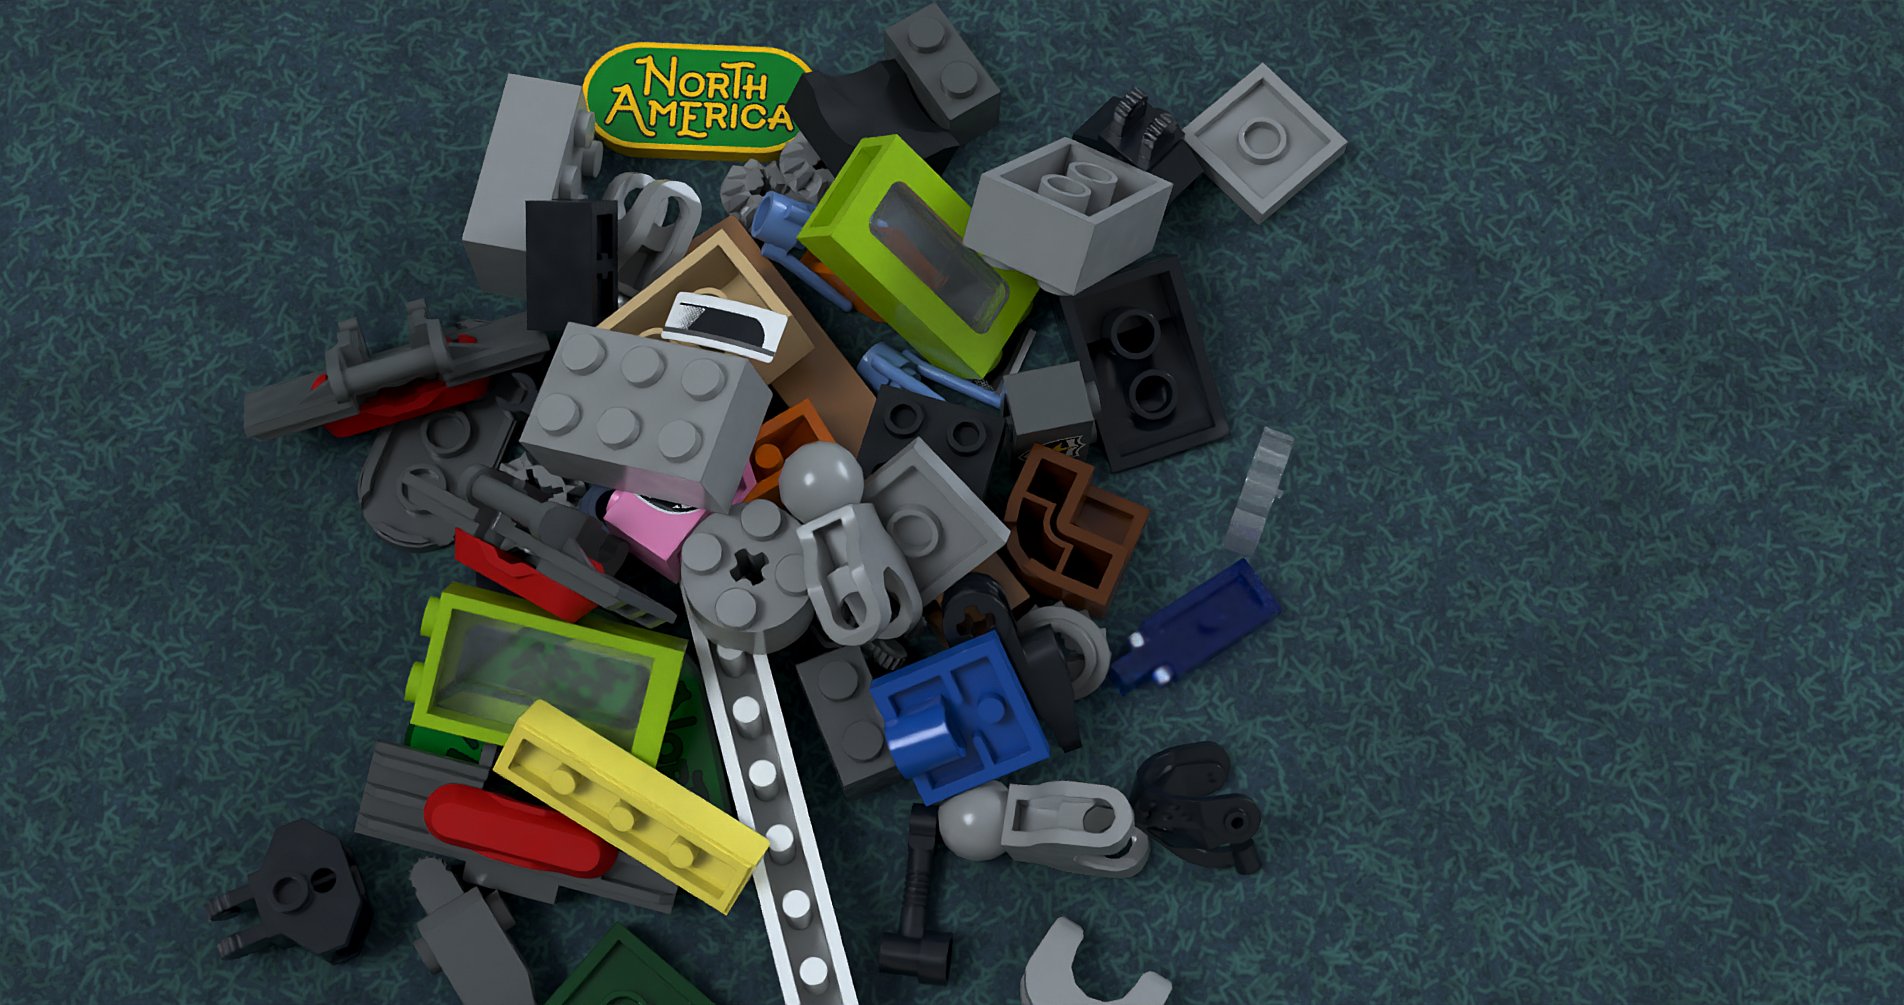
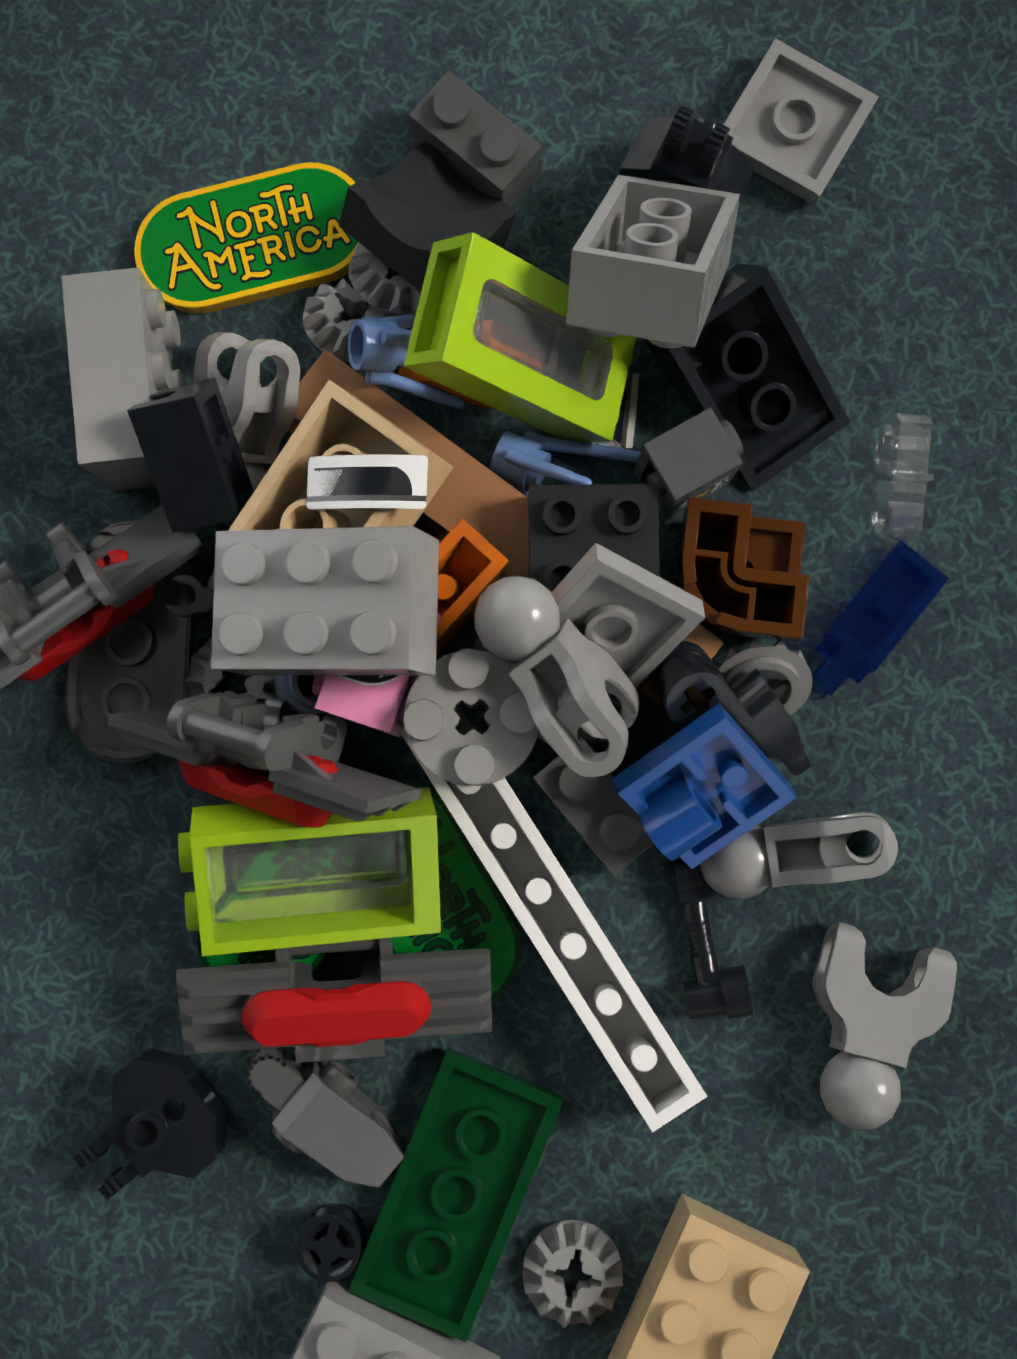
camera: 15 degrees left, 15 degrees up
(631, 805) = (433, 964): light yellow slope -> none
(1175, 814) = (892, 771): black helmet -> none

